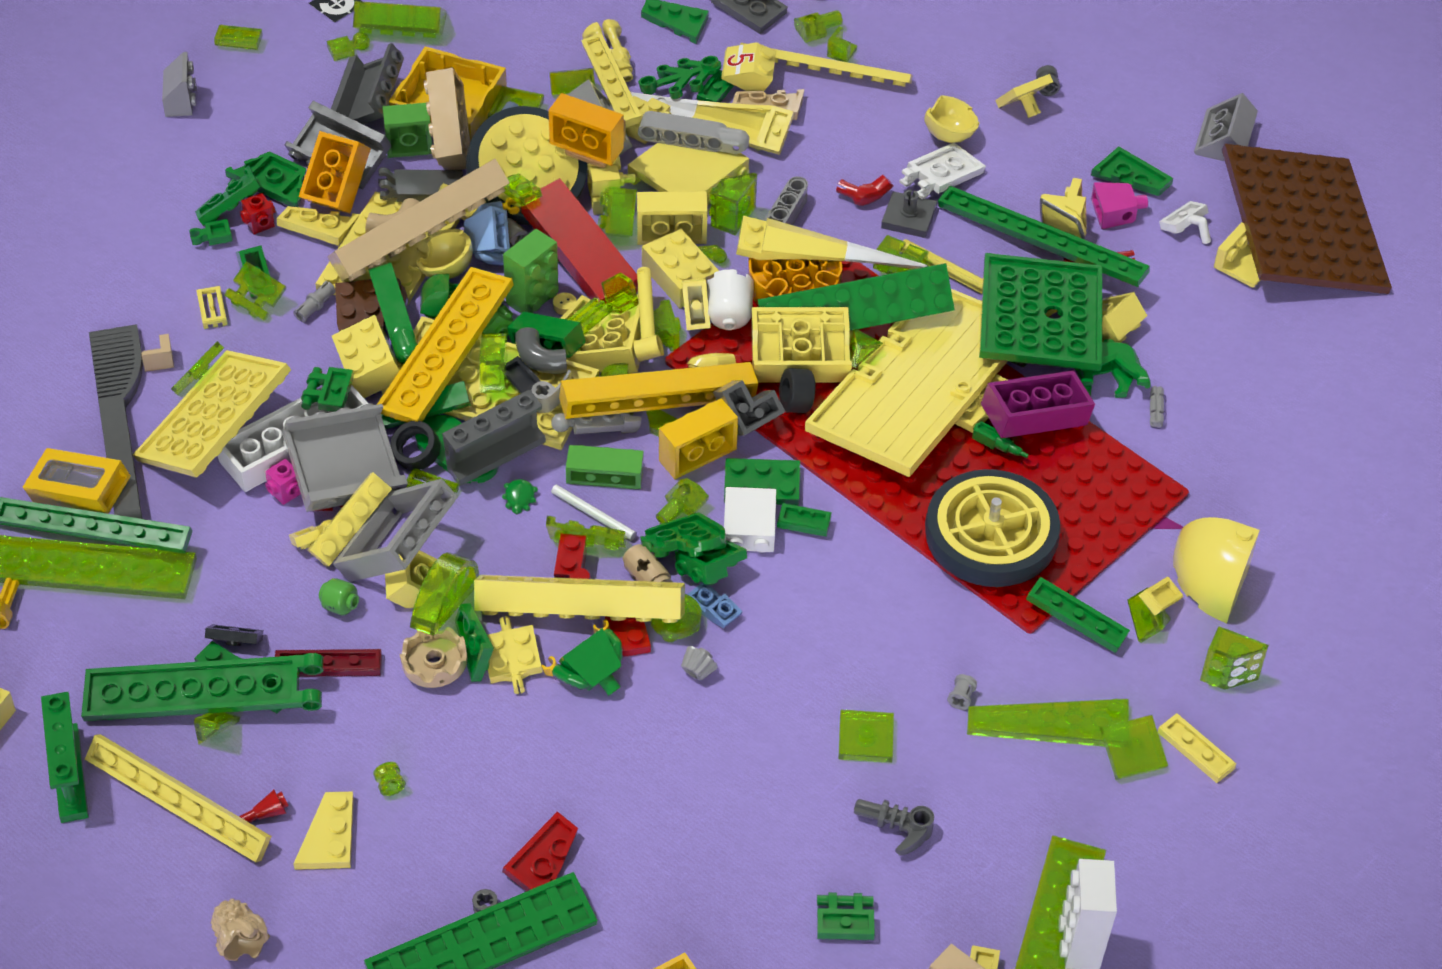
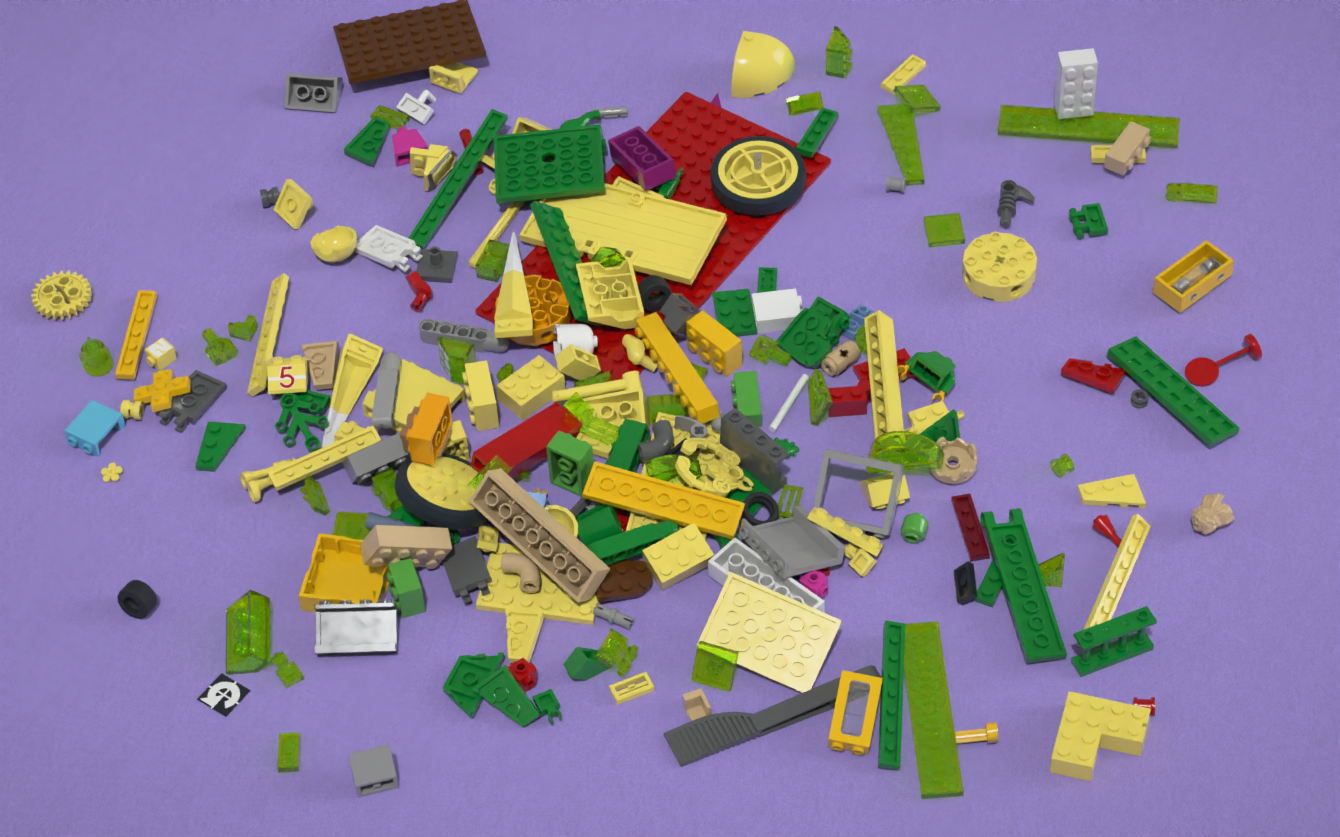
camera: 95 degrees left, 0 degrees up
(334, 123) = (431, 637): dark grey panel -> none
(334, 172) = (477, 618): light orange brick -> none
(334, 391) = (730, 556): green plate -> none
(452, 401) = (727, 473): none -> light yellow piece
(617, 211) = (481, 427): clear neon green brick -> none
(698, 663) = (914, 318): light grey piece -> none
(770, 779) = (999, 266): none -> light yellow brick
(1161, 203) = (394, 122): none -> clear neon green tile
(1161, 595) = (790, 92): light yellow tile -> none

